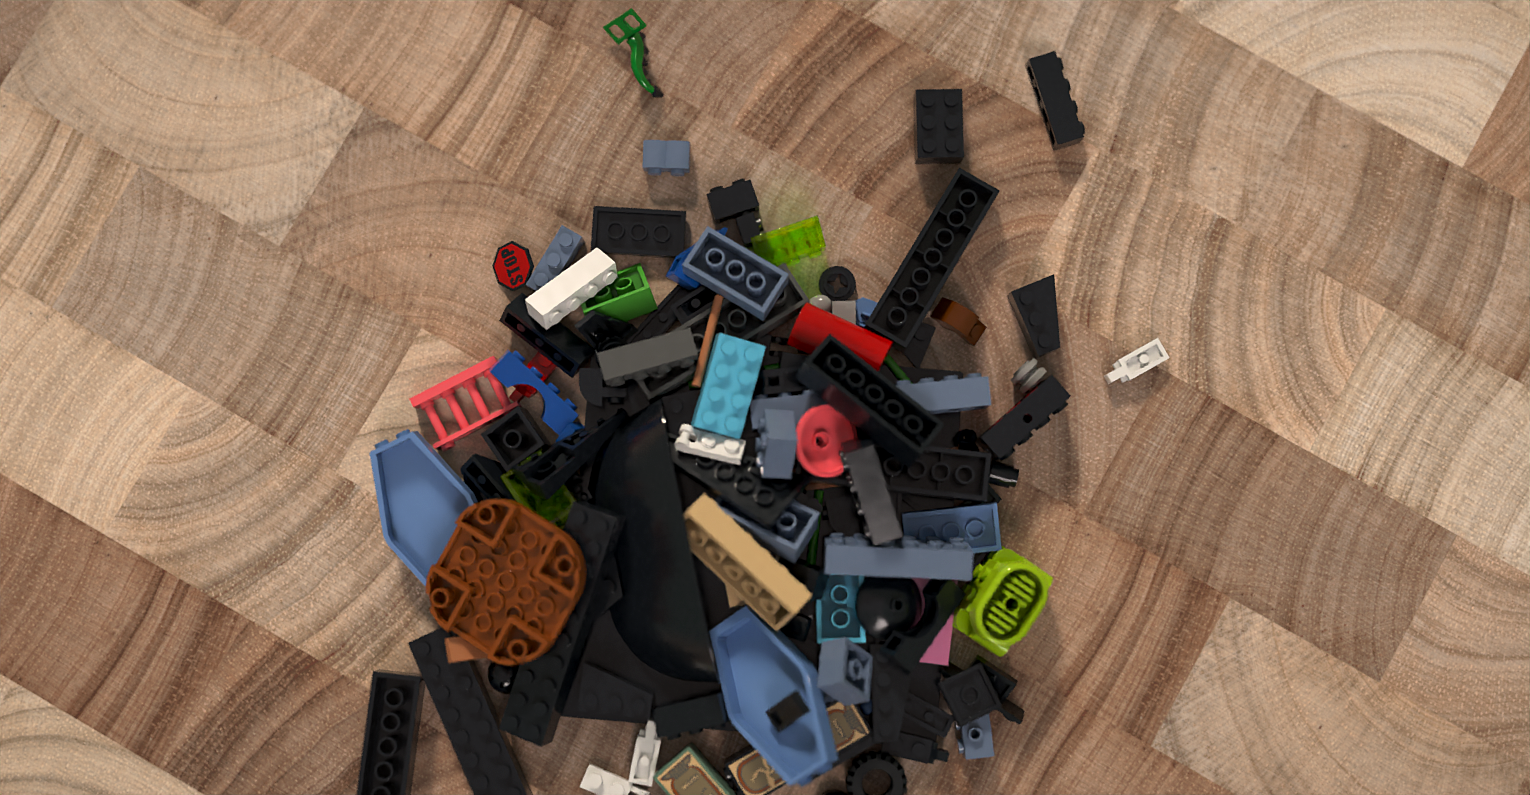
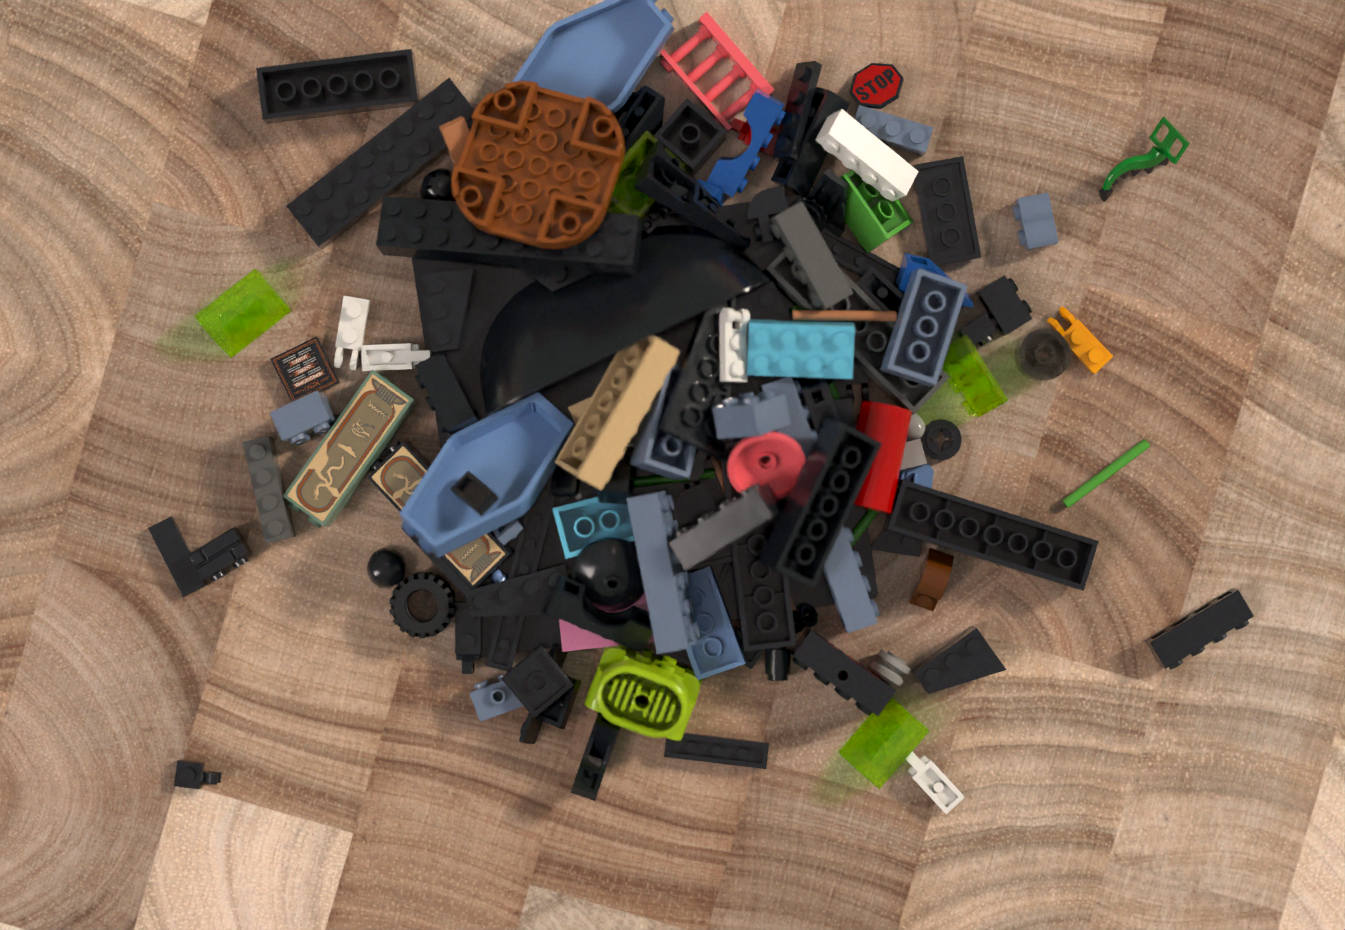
camera: 75 degrees right, 5 degrees up
(518, 340) = (797, 111): none -> black plate
(772, 172) = (1052, 344): none -> clear smoke brick
(780, 143) = (1081, 342): none -> light orange hinge
(845, 671) = (530, 544): sand blue brick -> none
(900, 149) = (1105, 473): none -> bright green bar
(938, 126) = (1140, 508): black brick -> none
(1051, 659) = (595, 758): none -> black arch
(1068, 545) = (718, 750): none -> black plate
(1094, 397) = (883, 742): none -> clear neon green slope

